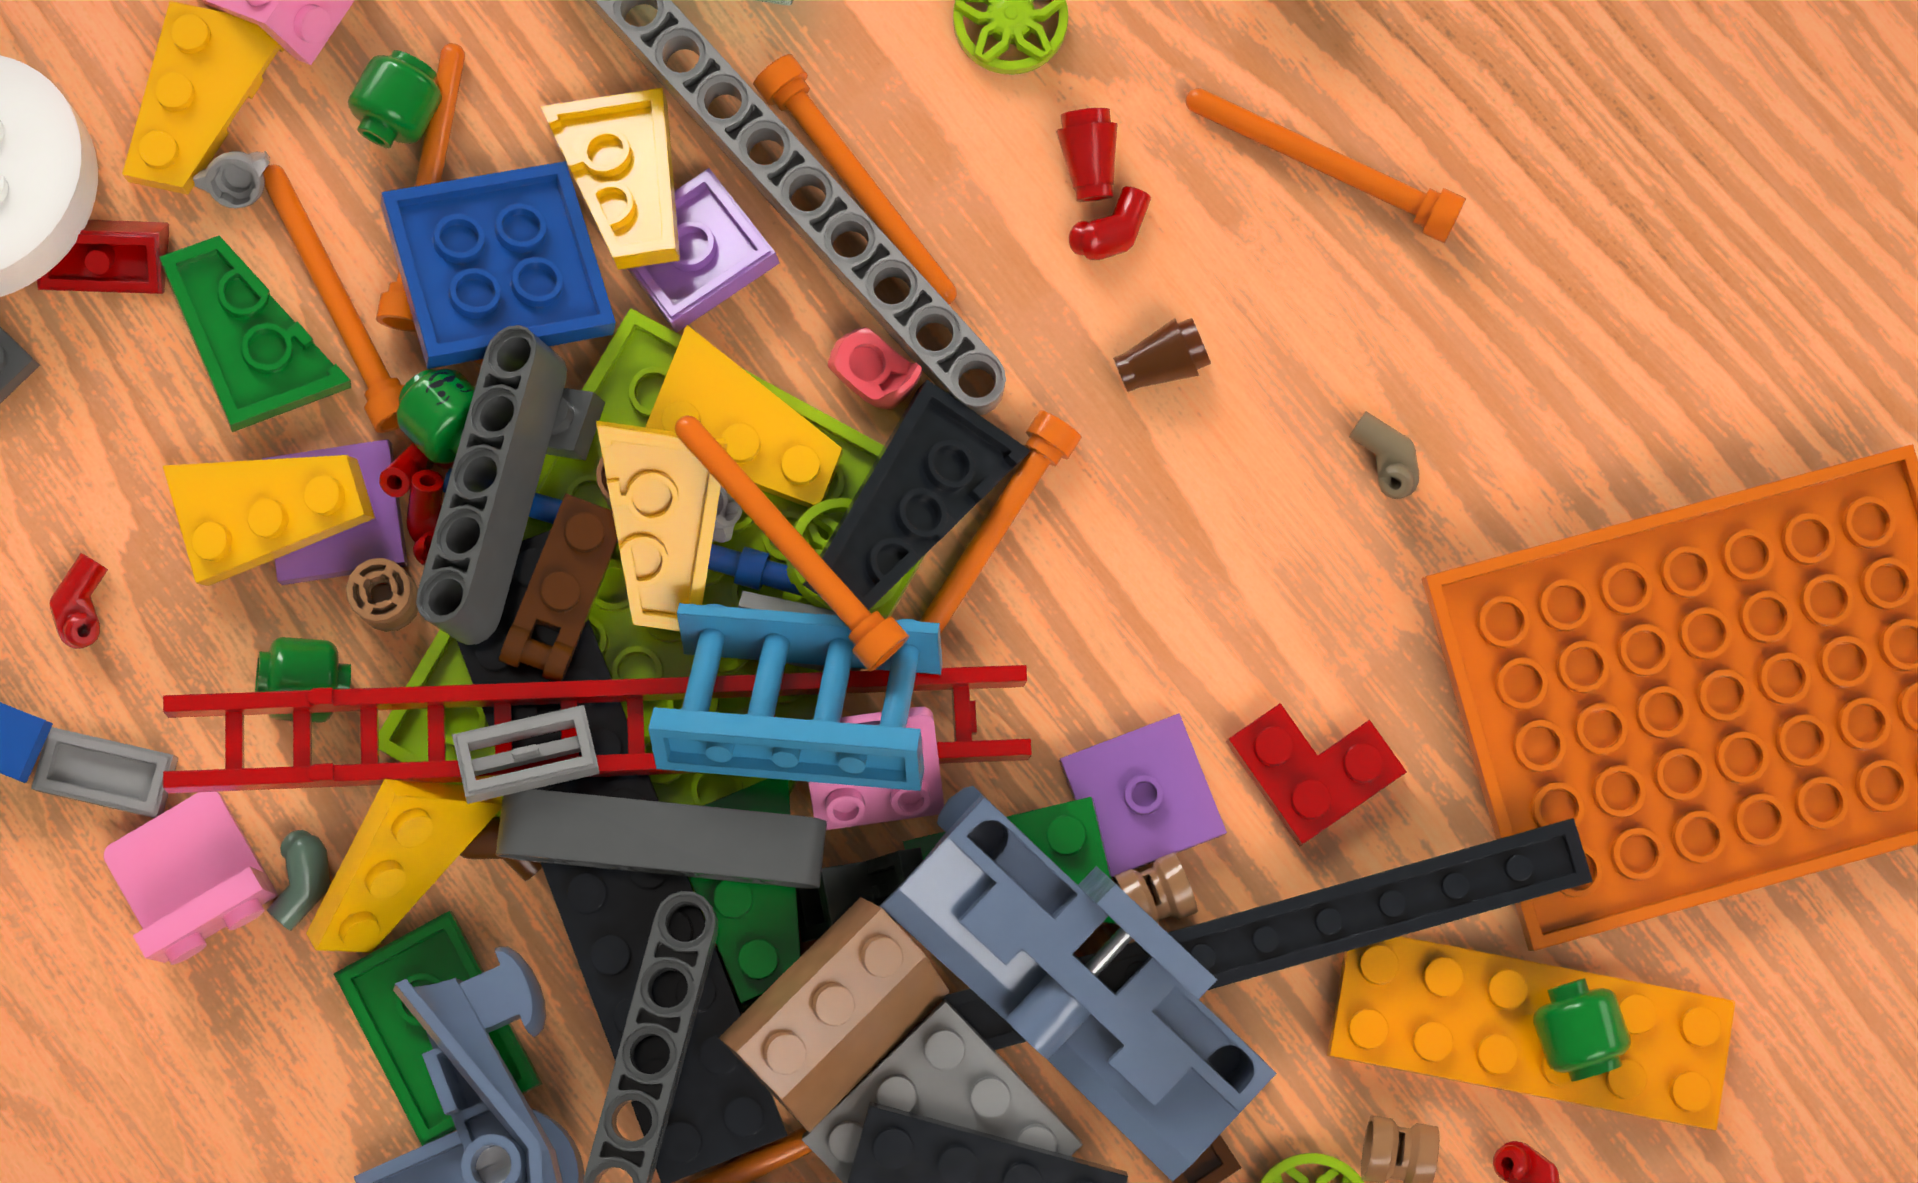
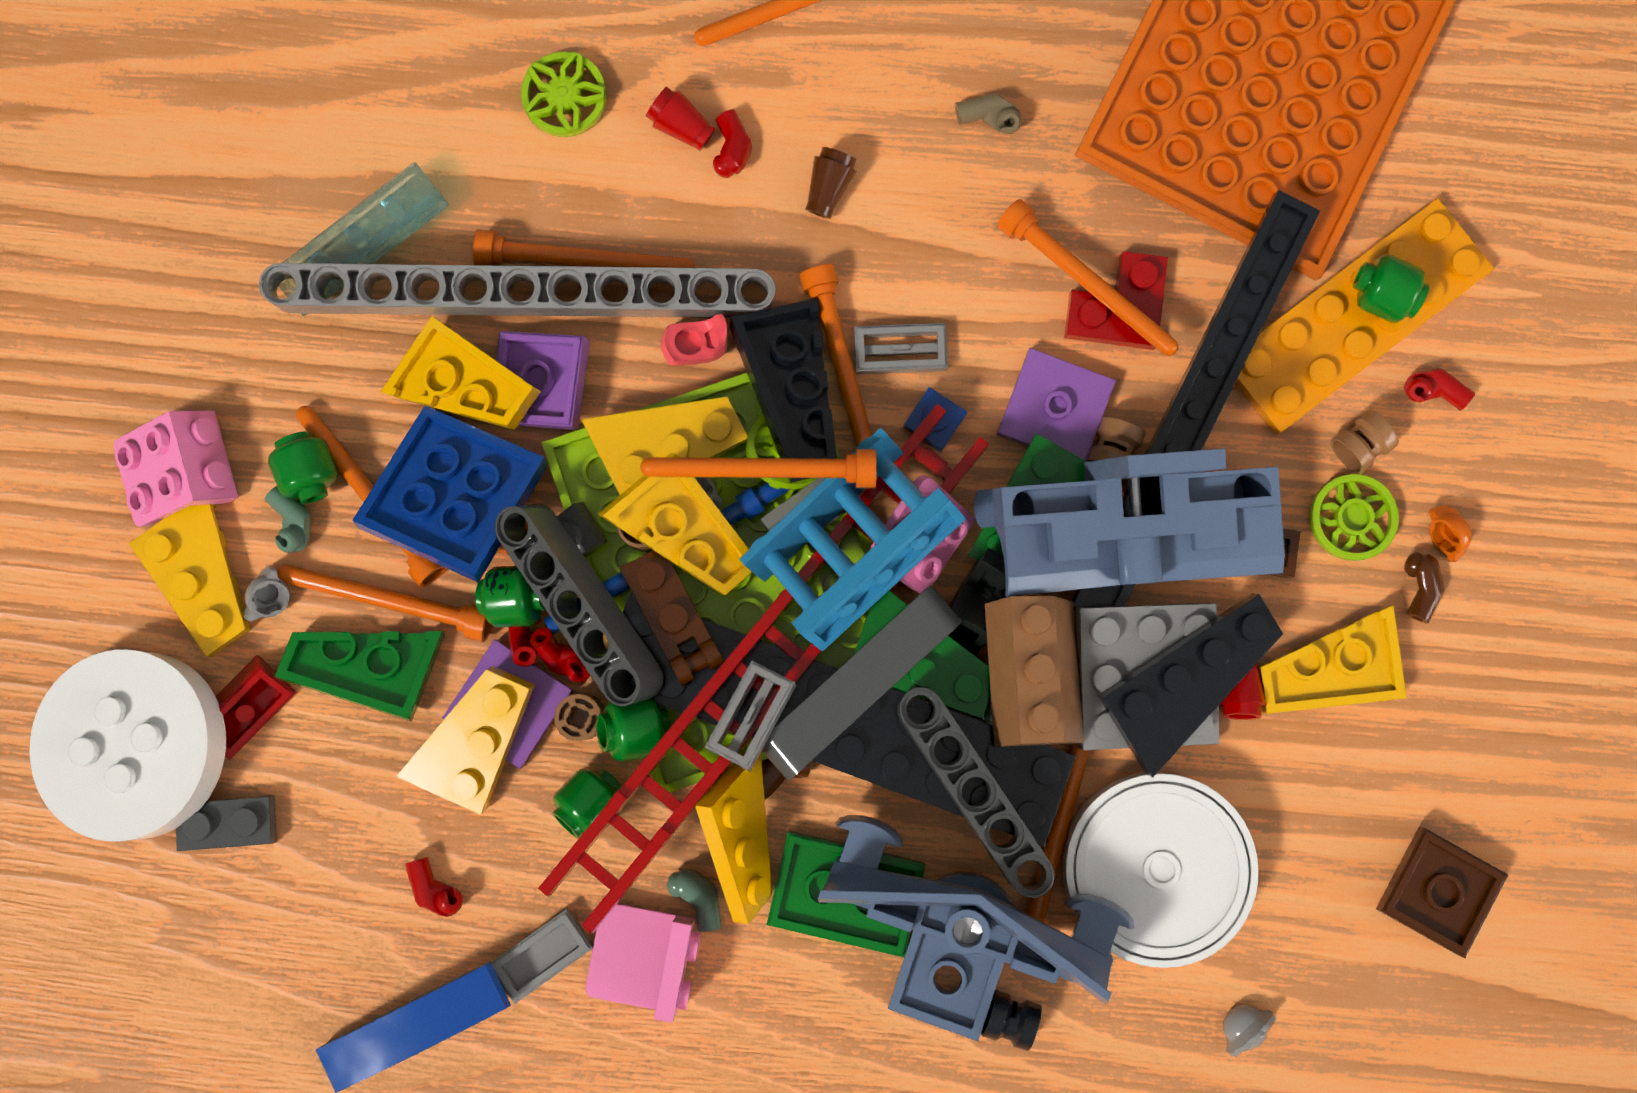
camera: 45 degrees left, 5 degrees up
(333, 143) = (295, 522): none -> sand green arm
(412, 651) = (632, 729): none -> green head
(1019, 701) = (945, 429): none -> blue plate
(1020, 545) = (901, 366): none -> light grey tile
(1301, 587) = (1020, 223): none -> orange piece

